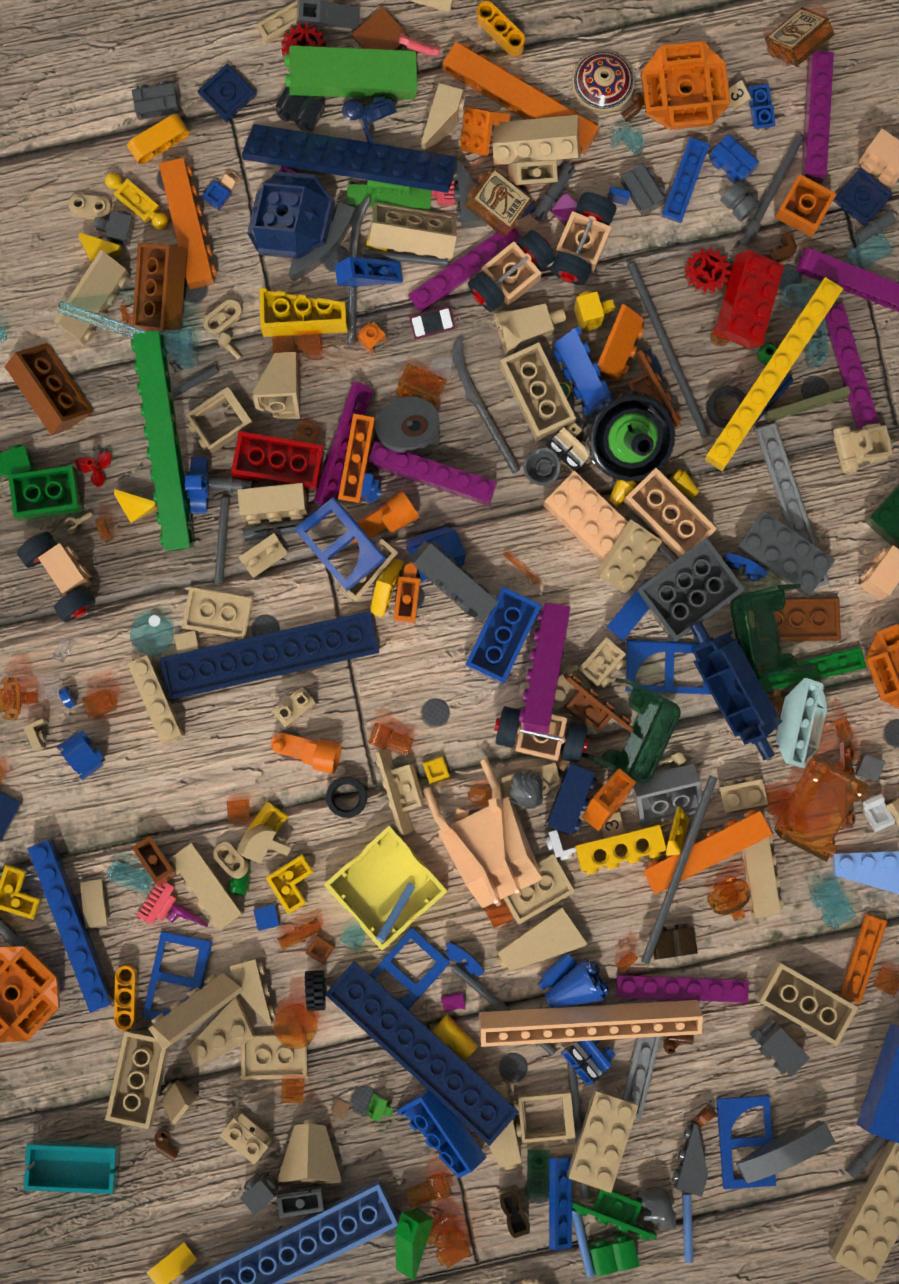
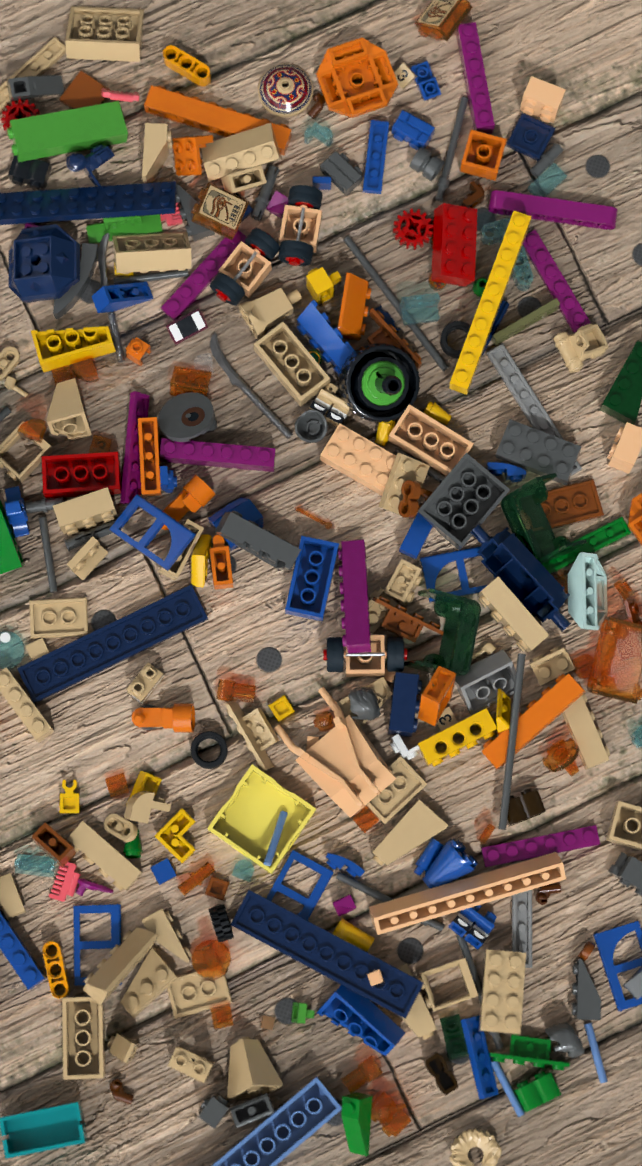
camera: 15 degrees left, 5 degrees down
(182, 816) = (69, 801): none -> yellow plate
(236, 399) = (33, 429): none -> clear orange brick
(468, 1093) = (375, 977): none -> light nougat piece
(635, 567) = (411, 492): none -> dark orange piece
(693, 362) = (420, 308): none -> clear light blue panel
(714, 730) = (513, 615): none -> tan brick

